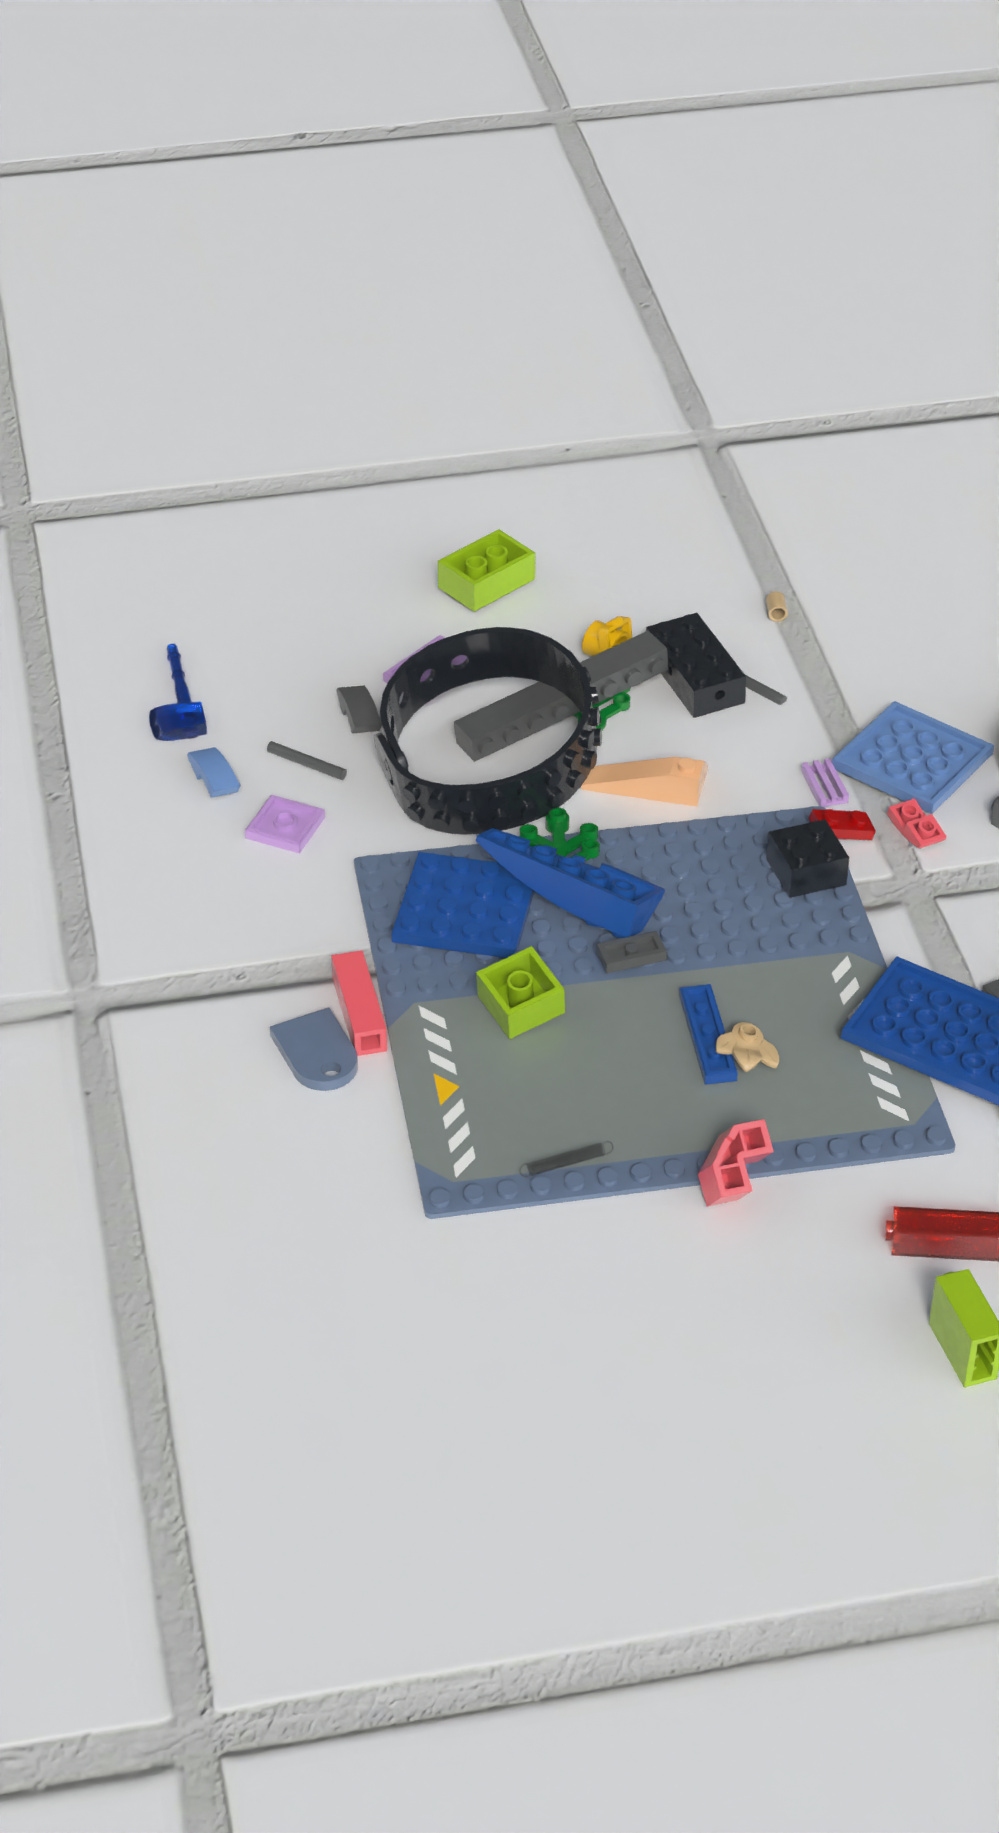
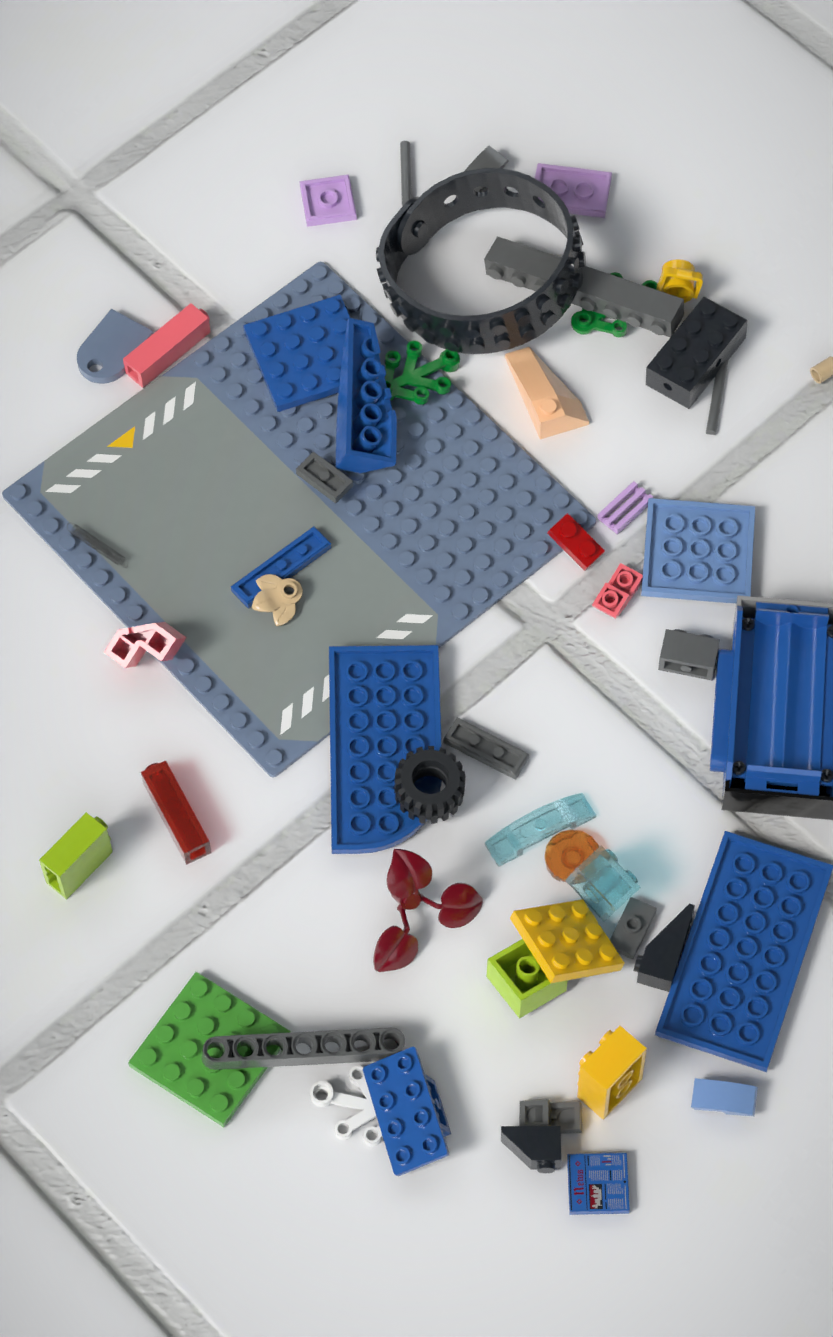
camera: 60 degrees right, 20 degrees up
(180, 719) = (395, 76): clear blue piece -> none
(215, 771) = (346, 126): medium blue slope -> none
(486, 570) = (705, 157): lime brick -> none
(520, 992) = (229, 432): lime brick -> none
(807, 858) = (504, 536): black brick -> none

